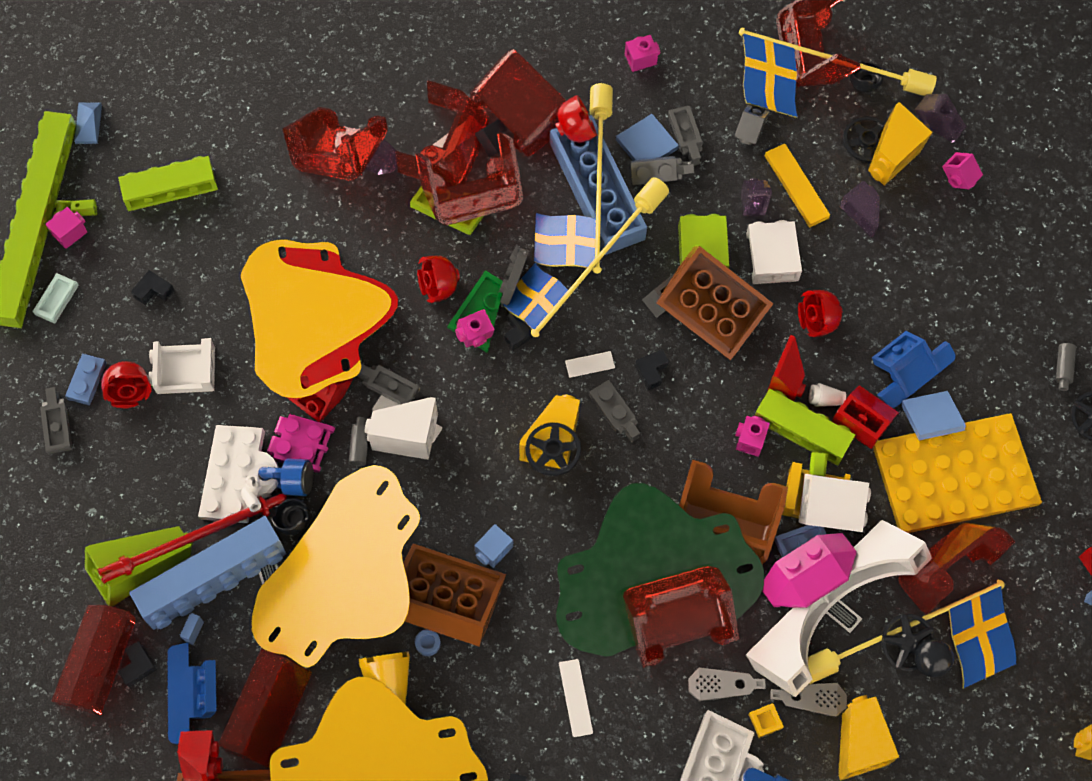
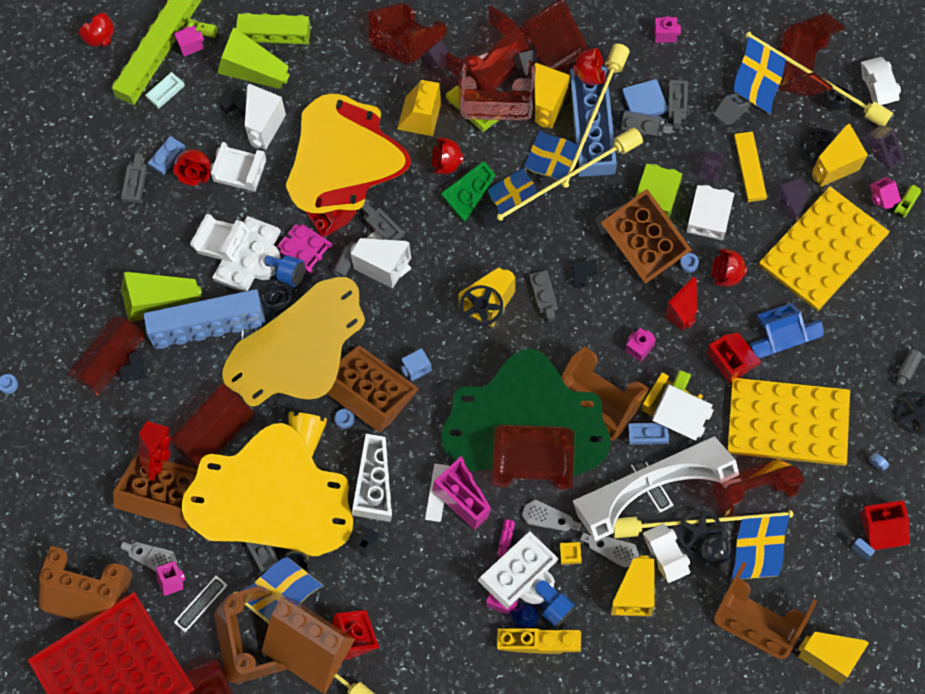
camera: 25 degrees right, 0 degrees up
(126, 565) = (147, 293): red bar -> none
(155, 232) = (251, 62): none -> lime slope
(189, 691) = (164, 396): blue plate -> none
(191, 628) = (180, 355): medium blue tile -> none
(192, 464) = (220, 238): none -> white panel
(194, 294) = (262, 116): none -> white slope
(250, 492) = (254, 270): white arm -> none
(386, 229) = (421, 109): none -> yellow slope
(474, 329) = (458, 202): dark pink brick -> none
(495, 717) = (372, 488): none -> white wedge
(514, 271) = (504, 170): dark grey hinge -> none
(535, 168) = (549, 94): none -> yellow slope
(590, 364) = (538, 255): white sticker -> none
(610, 691) = (461, 494): none -> dark pink wedge
(681, 728) = (506, 537): none -> dark pink axle
(771, 320) = (689, 262): none -> medium blue tile
(804, 427) = (682, 350): lime brick -> none
(810, 571) = (644, 455): dark pink wedge -> none
(826, 396) = (708, 332): white cone -> none
(873, 674) = (667, 553): none -> white brick
(906, 43) = (880, 80): none -> white brick
(916, 256) = (823, 248): none -> yellow plate
(933, 415) = (787, 372): medium blue tile -> none
(989, 171) = (908, 200): none -> lime bar
(1022, 733) = (758, 624): none -> dark orange windscreen
(1077, 488) = (878, 461): none -> medium blue tile

